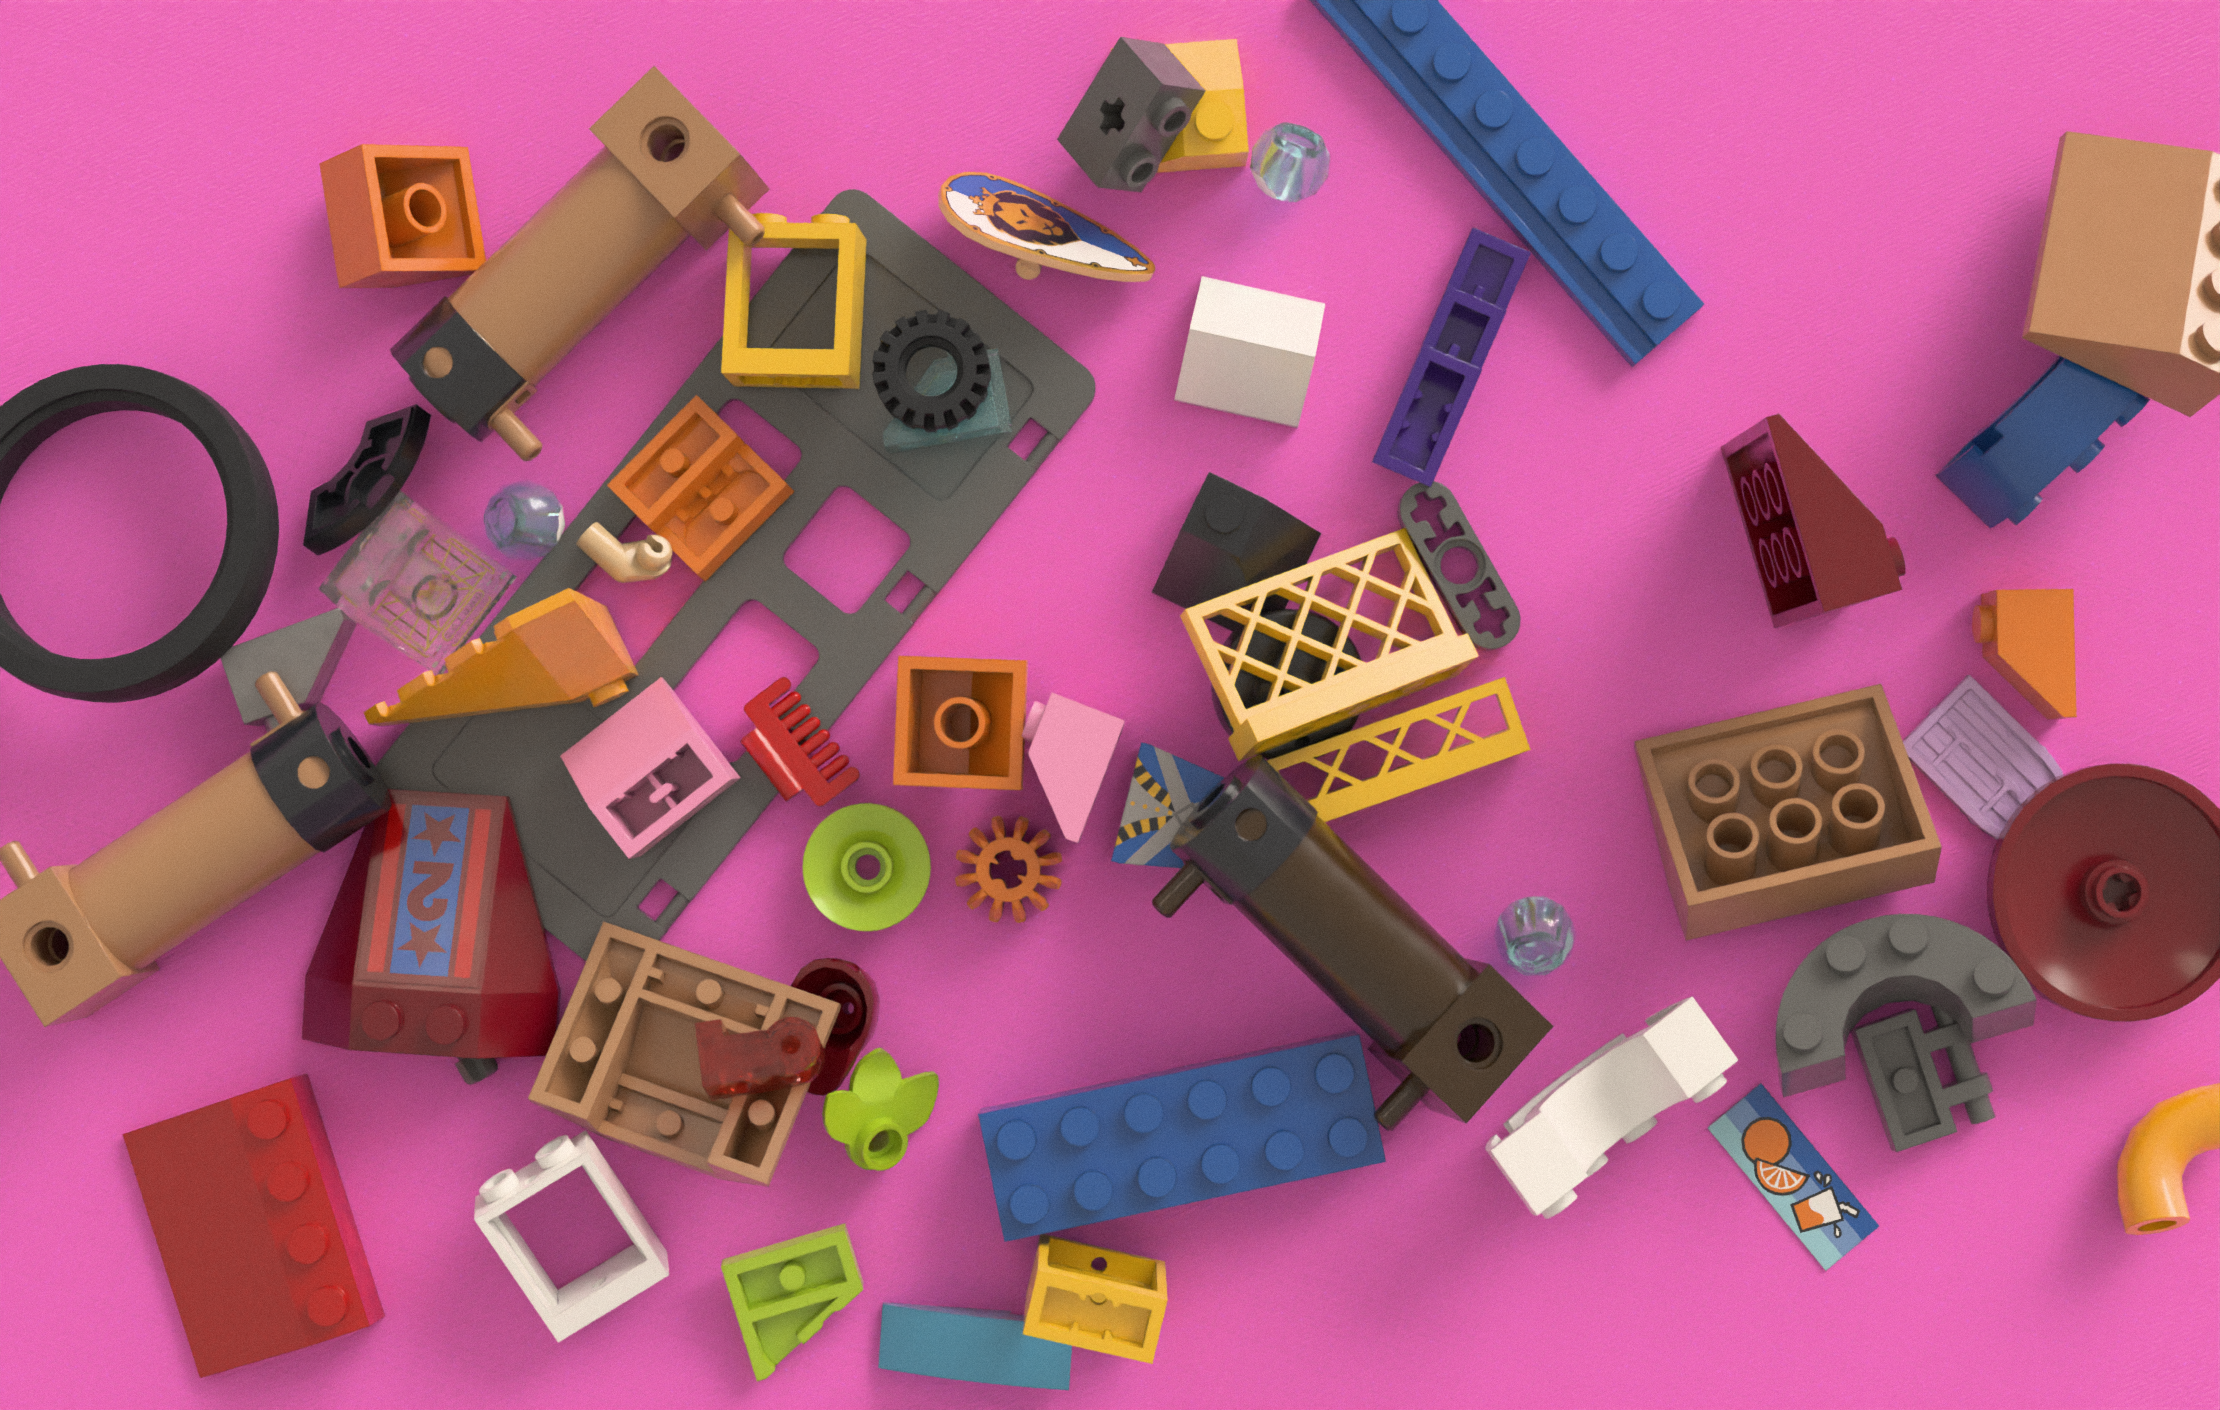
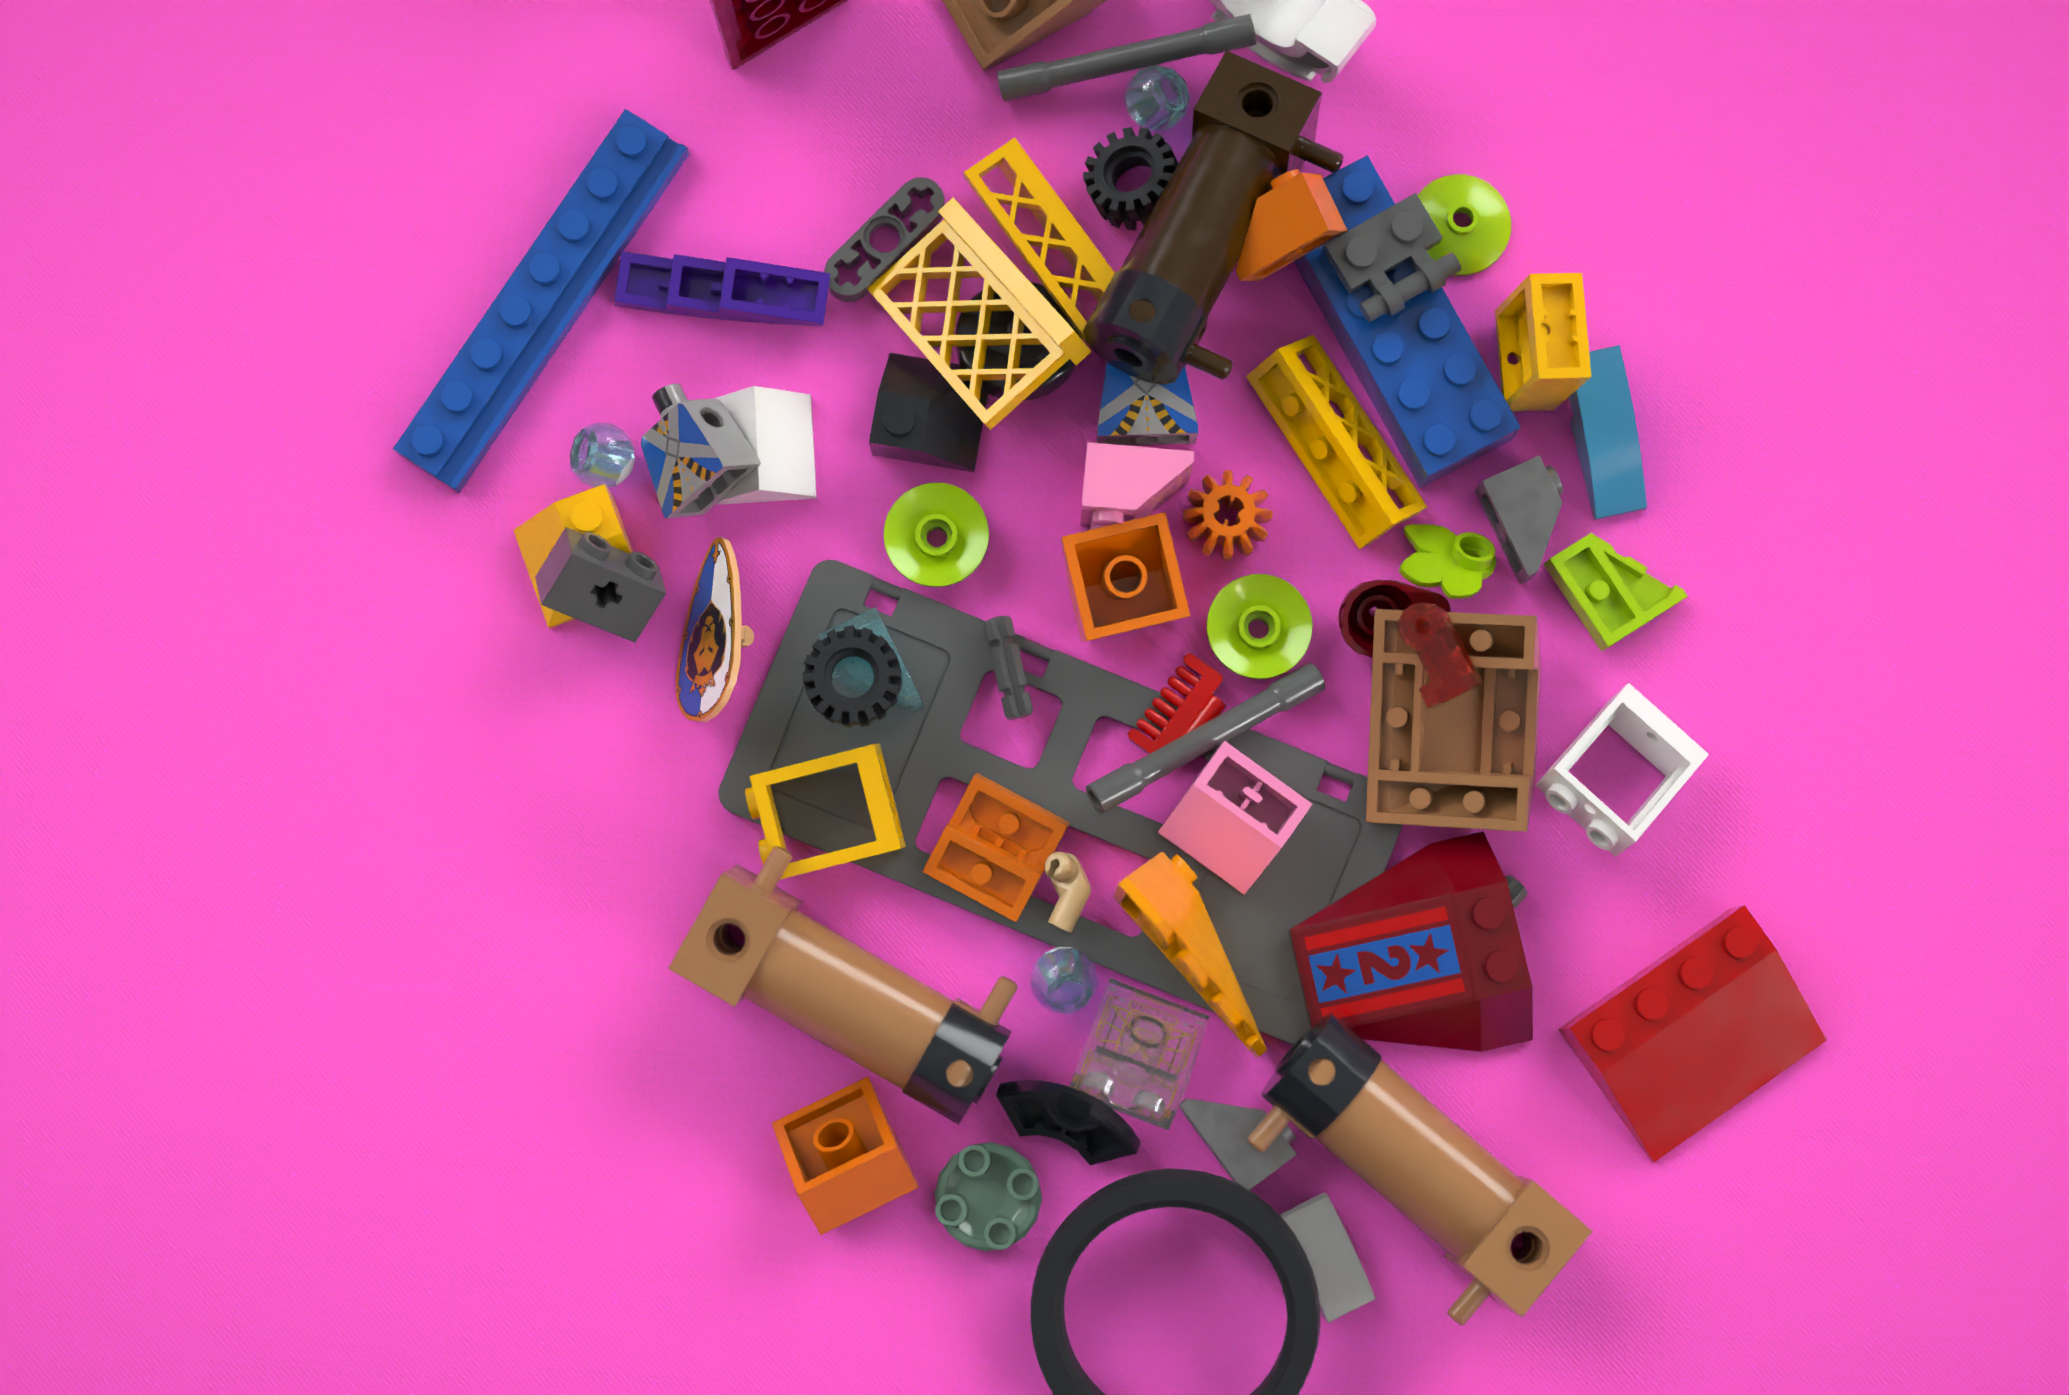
camera: 105 degrees left, 5 degrees down
(125, 730) = (1332, 1257): none -> light grey slope
(309, 365) = (988, 1196): none -> sand green dish
(726, 665) = (1134, 777): none -> dark grey piece
(903, 561) = (1008, 667): none -> dark grey axle
(910, 1218) = (1523, 512): none -> flat silver slope
(1059, 1016) = (1330, 443): none -> yellow fence
(1084, 489) = (929, 509): none -> lime dish
(1260, 268) = (694, 453): none -> light grey torso
(1265, 1143) = (1385, 243): none -> dark grey plate
(1274, 1220) = (1490, 226): none -> lime dish
(1322, 1039) = (1288, 224): none -> orange slope
(1471, 859) = (1116, 160): none -> black tyre
(1583, 1016) = (1208, 39): none -> dark grey piece

